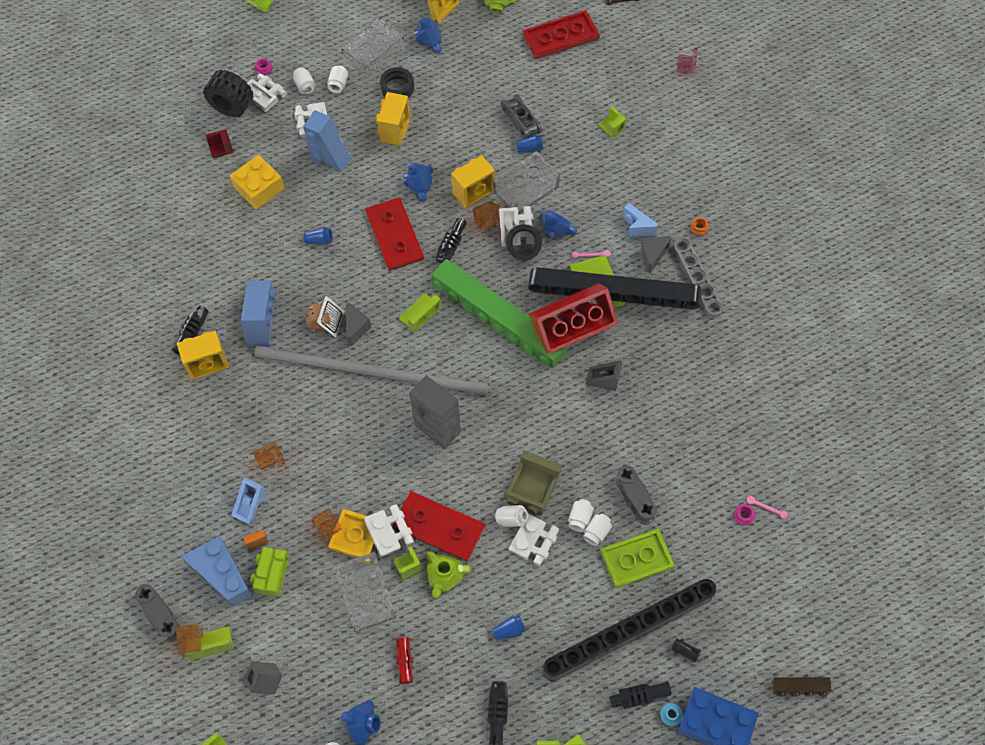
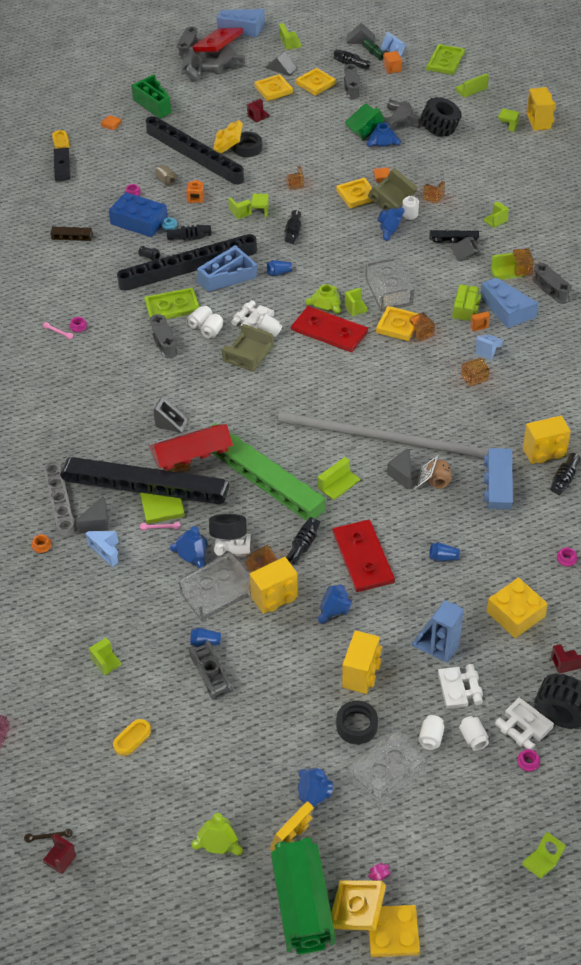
camera: 175 degrees left, 15 degrees down
(204, 236) = (567, 552): none -> dark pink plate
(276, 705) = (452, 235): none -> black tile
(383, 534) = (373, 315): white plate -> none
(404, 660) = (359, 255): red pin -> none
(435, 412) = (326, 368): dark grey brick -> none
(561, 34) = (141, 781): red plate -> none
(575, 67) = (132, 737): none -> yellow tile
(576, 609) = (226, 270): none -> medium blue wedge

